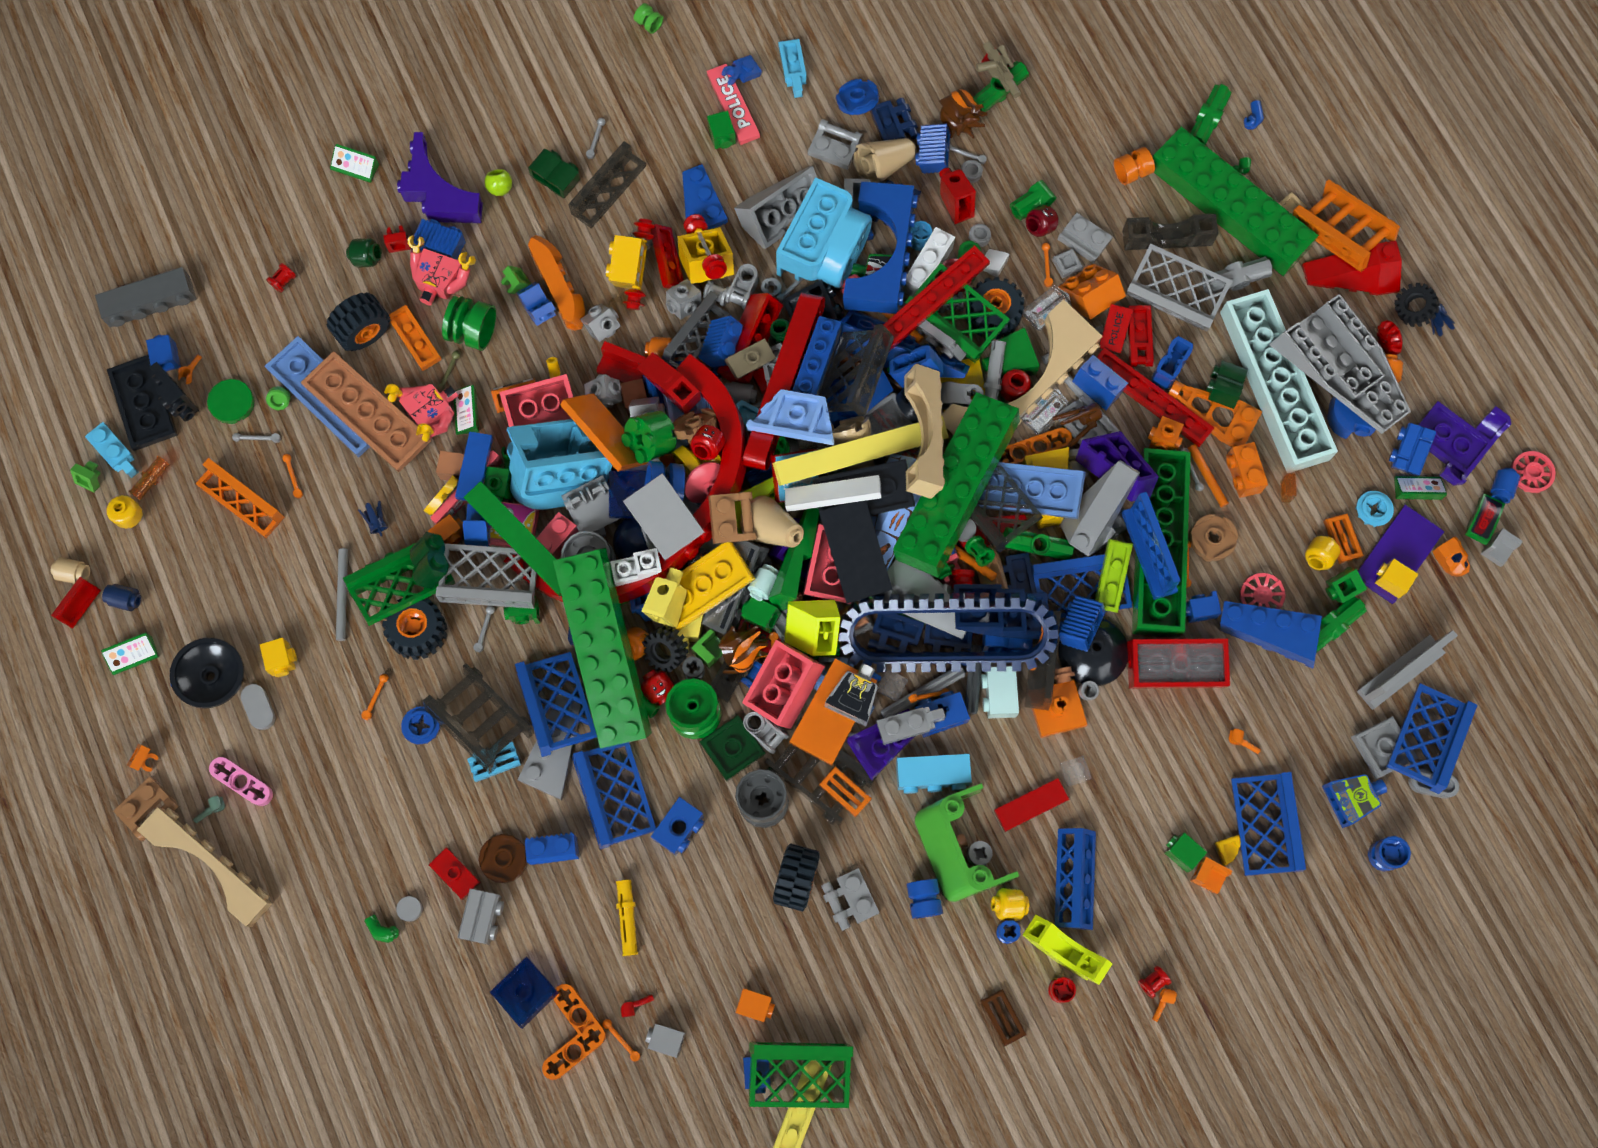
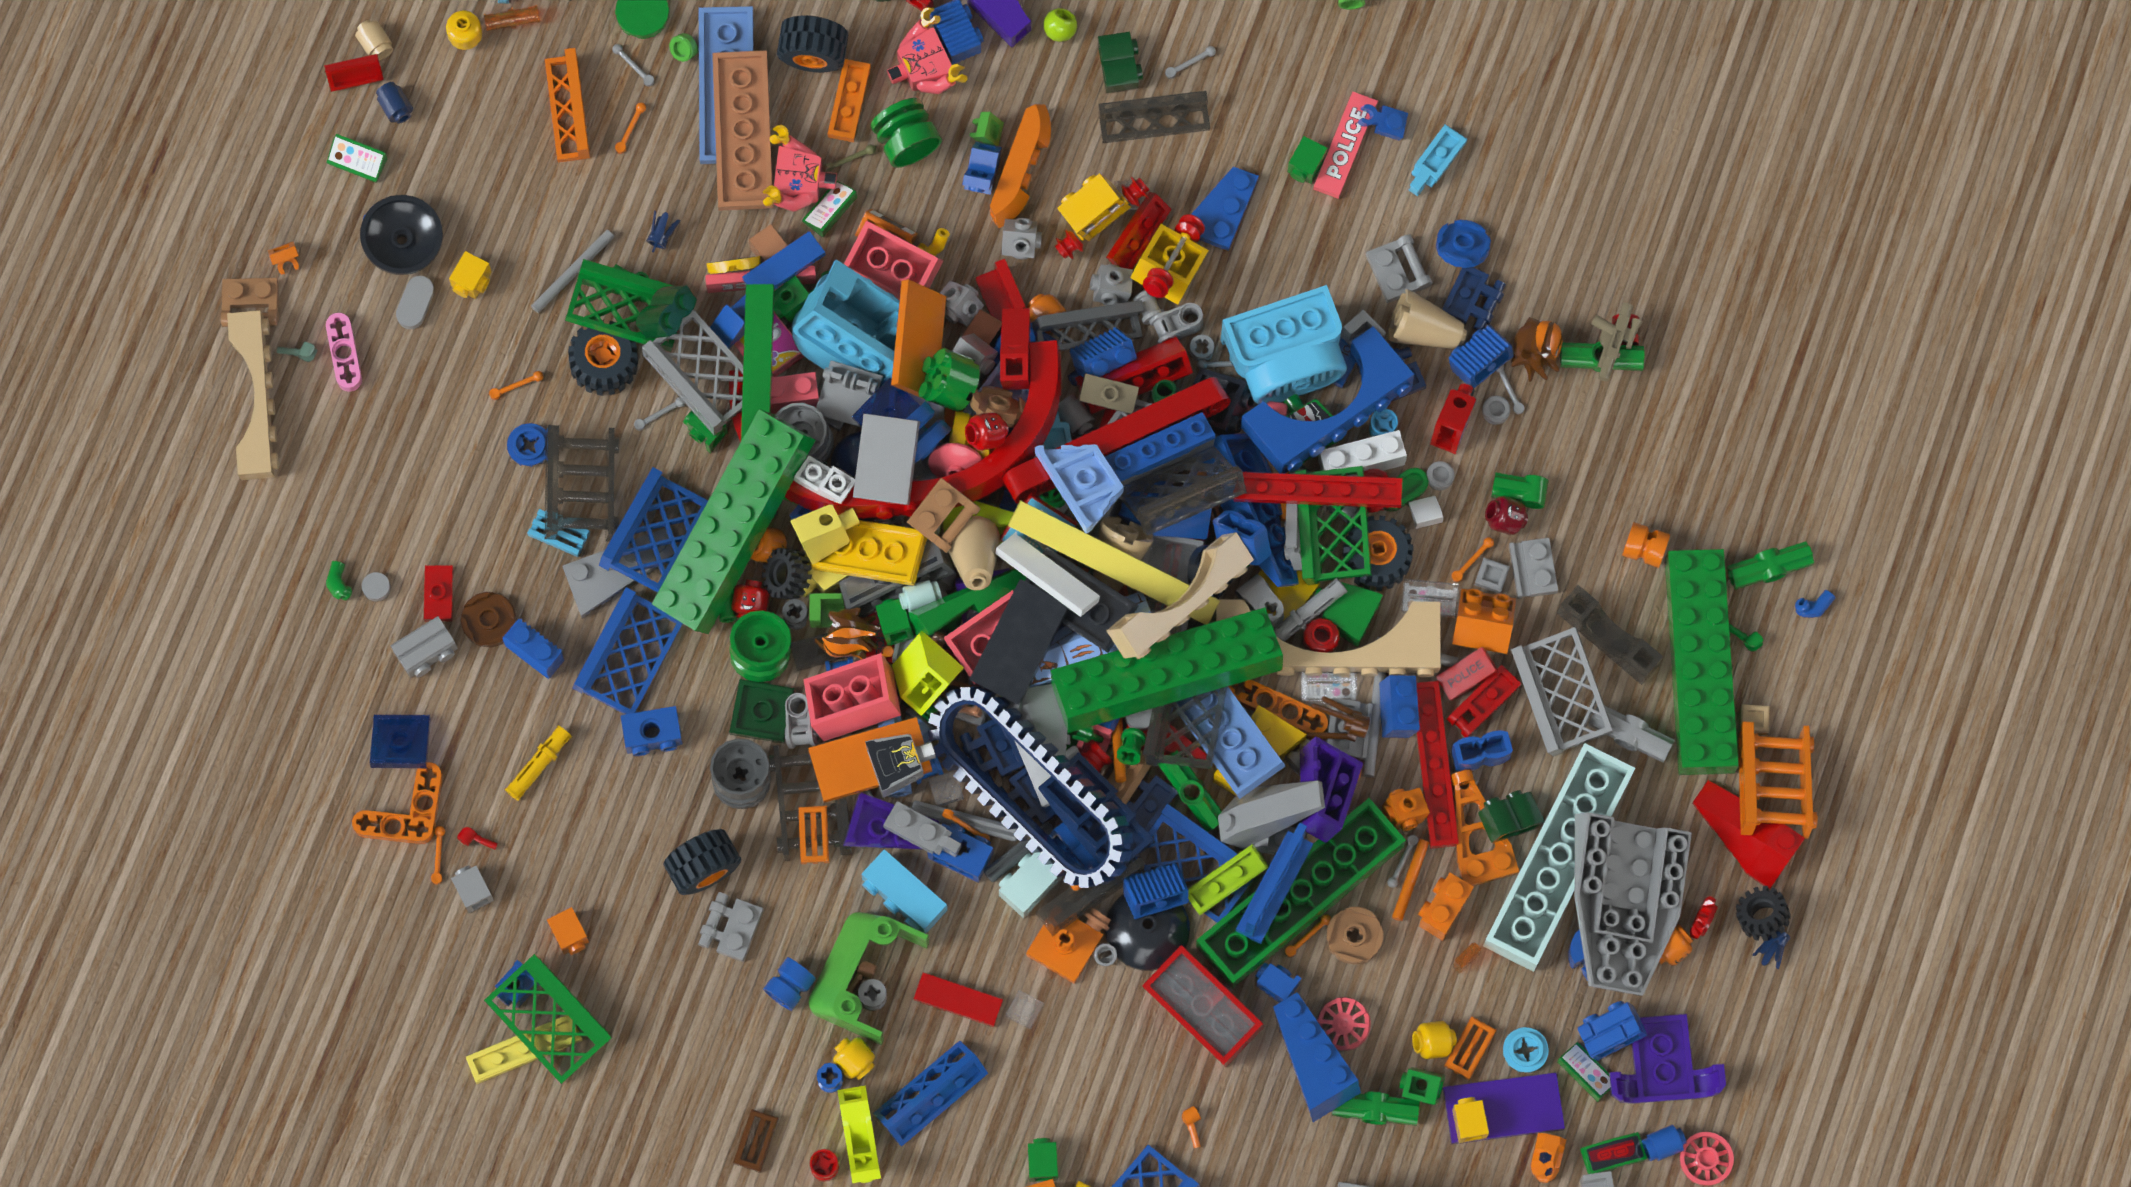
camera: 45 degrees right, 0 degrees up
(449, 529) = (710, 300): orange brick -> none
(771, 210) = (1272, 275): light grey wedge -> none

